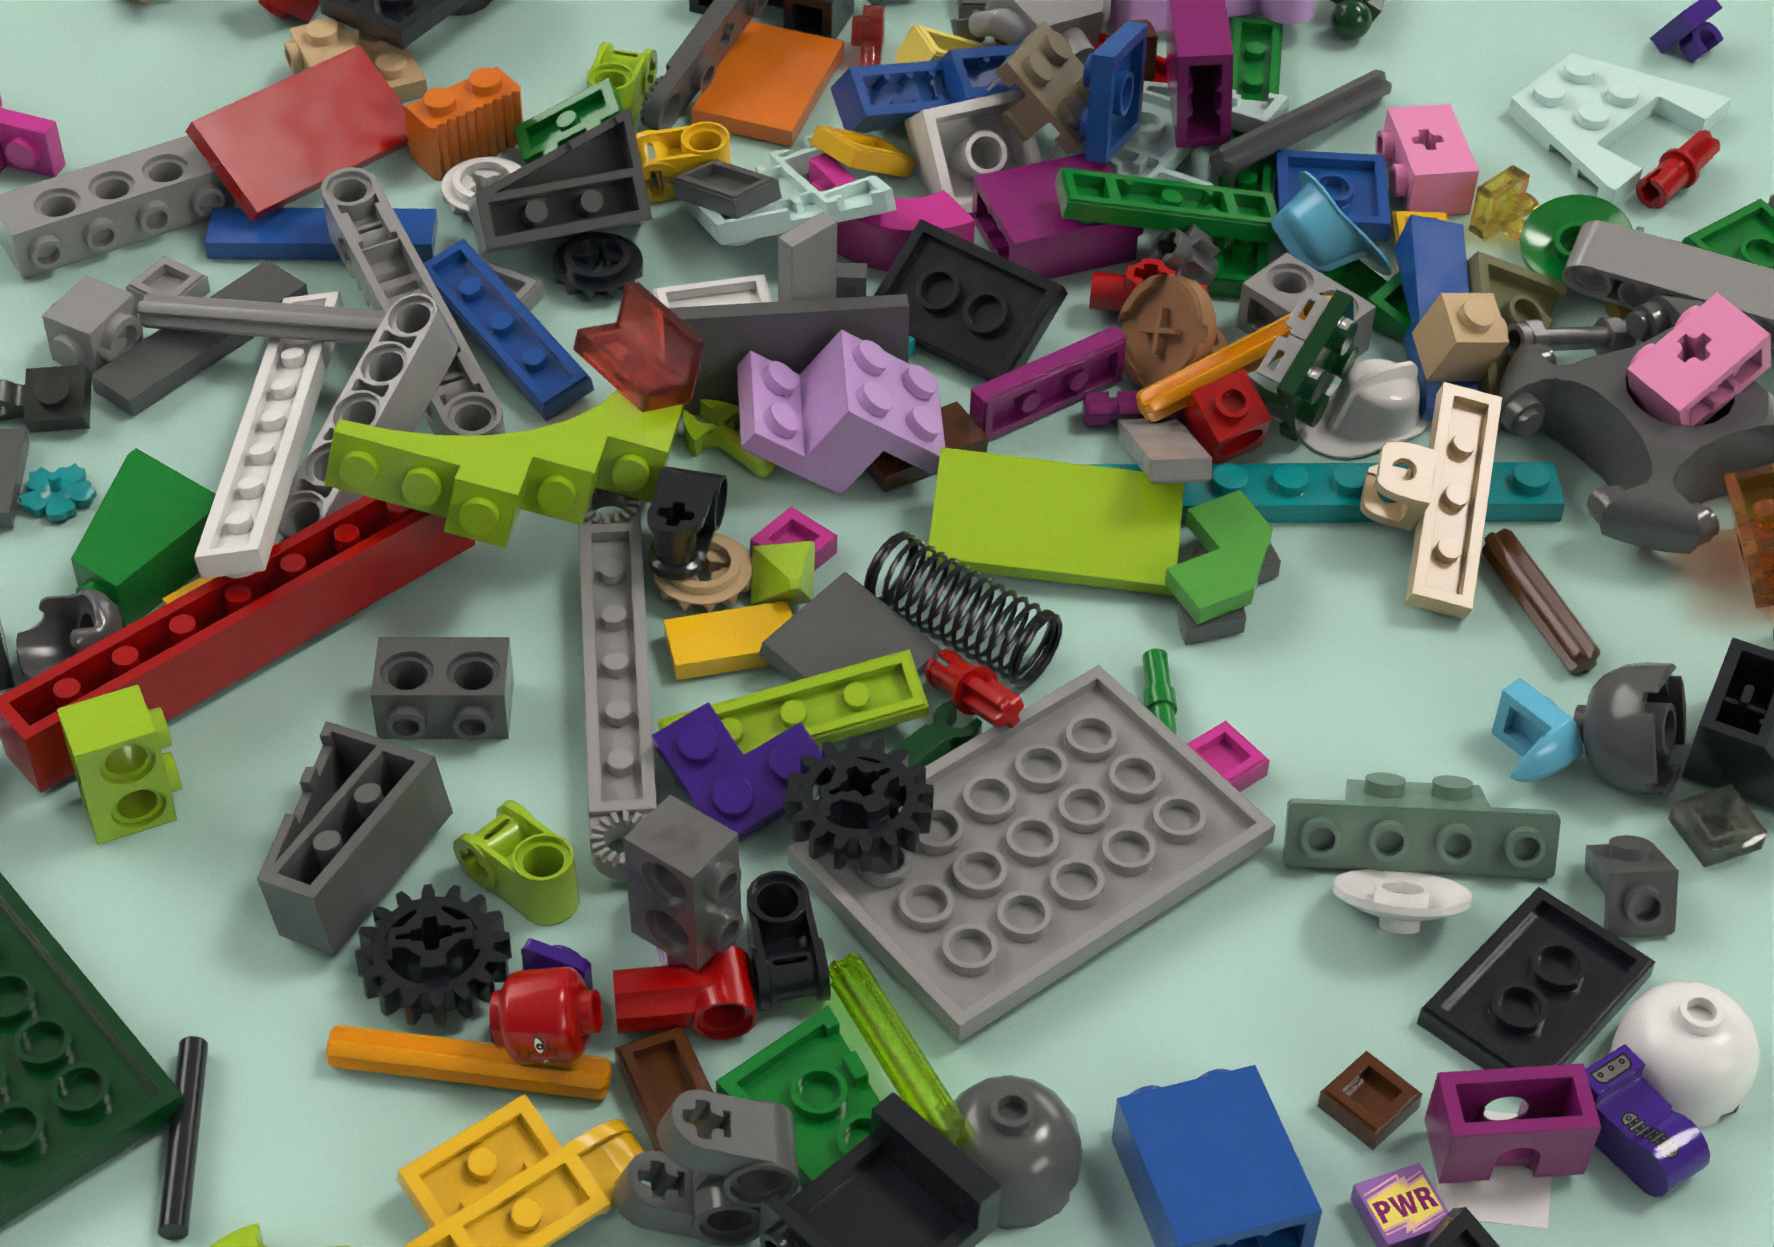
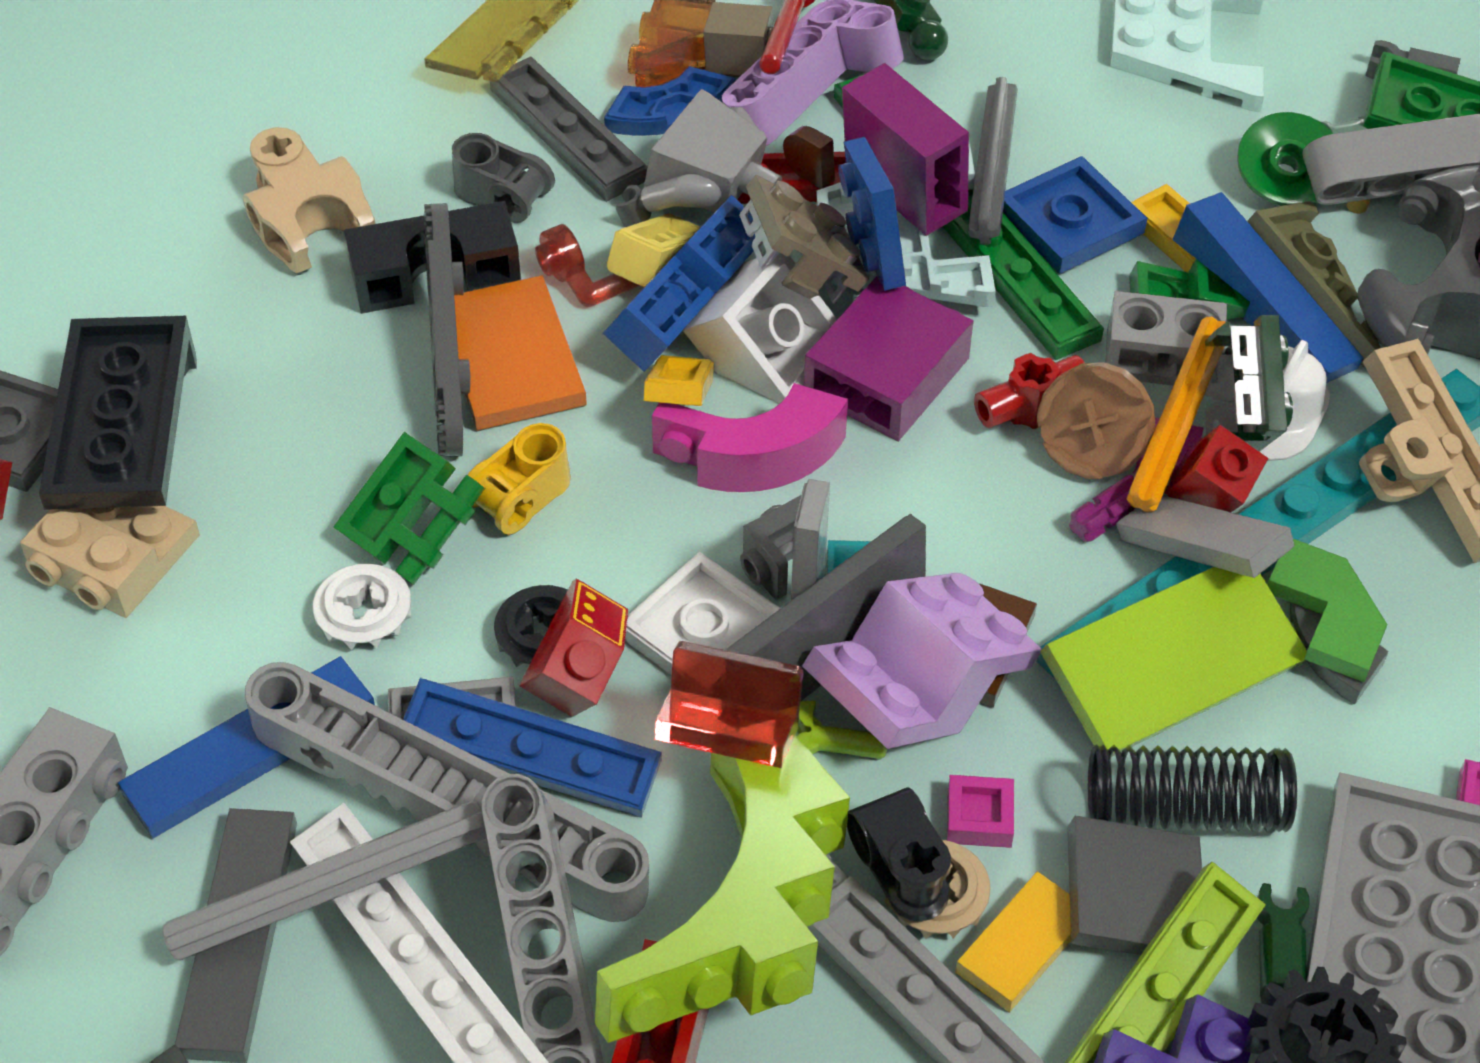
camera: 35 degrees left, 5 degrees up
(92, 324) = (129, 994): light grey brick -> none
(169, 278) = (149, 897): light grey tile -> none
(300, 131) = (152, 653): tile -> none
(464, 121) = (287, 549): orange brick -> none
(569, 192) = (468, 572): dark grey wedge -> none
(592, 277) = (578, 650): none -> red slope
(628, 71) = (380, 418): lime piece -> none
(726, 188) = (610, 487): dark grey tile -> none
(783, 573) = (1010, 847): lime slope -> none
(798, 202) = (648, 483): light aqua wing -> none
(971, 302) = (903, 470): black tile -> none
(974, 689) = (1280, 861): red axle -> none
(1049, 383) = (1040, 520): magenta tile -> none
(1159, 694) = (1389, 767): green piece -> none
(1165, 205) = (988, 299): green plate -> none
(1187, 254) = (1031, 326): flat silver gear -> none
(1321, 233) = (1121, 253): medium azure piece -> none
(1428, 159) = (1115, 140): bright pink brick -> none
(1460, 337) = (1322, 297): tan brick -> none
(1502, 204) = (1206, 155): clear yellow tile -> none
(1605, 336) = (1354, 264): flat silver bar -> none
(1677, 169) = (1286, 54): red axle -> none

